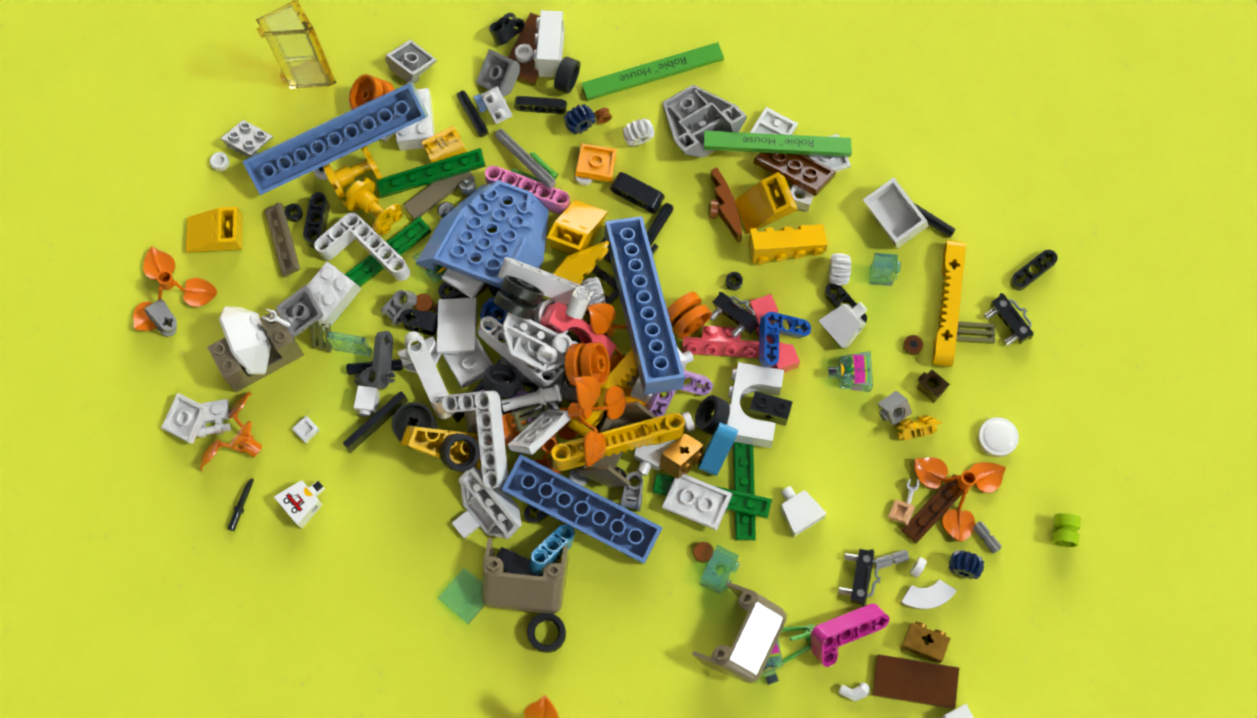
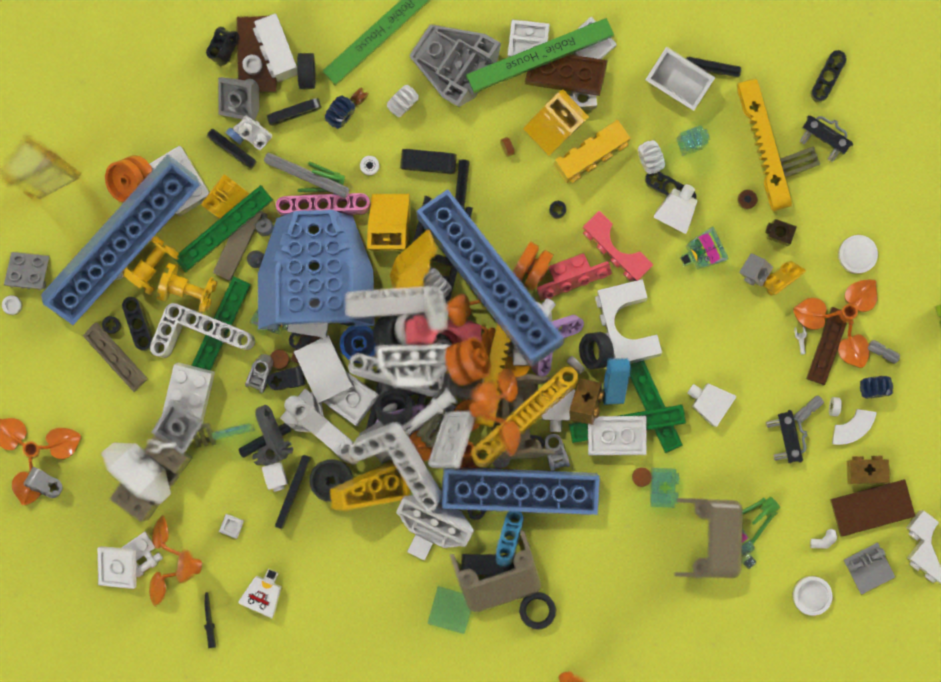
camera: 25 degrees left, 15 degrees up
(215, 230) = (46, 378): yellow slope -> none
(409, 61) = (145, 122): light grey slope -> none
(473, 456) = (376, 492): black tyre -> none
(518, 297) = (379, 330): pearl dark grey wheel -> none
(547, 354) = (428, 371): white tile -> none
(561, 343) = (436, 353): white tile -> none
(596, 162) = (375, 148): light orange tile -> none
(728, 210) = (522, 141): dark orange slope -> none
(735, 312) = (573, 242): black piece -> none
(770, 408) = (644, 319): black brick -> none
(774, 330) = (616, 246): blue beam -> none
(845, 629) = (796, 492): dark pink beam -> none
(901, 512) = (800, 363): light nougat tile -> none

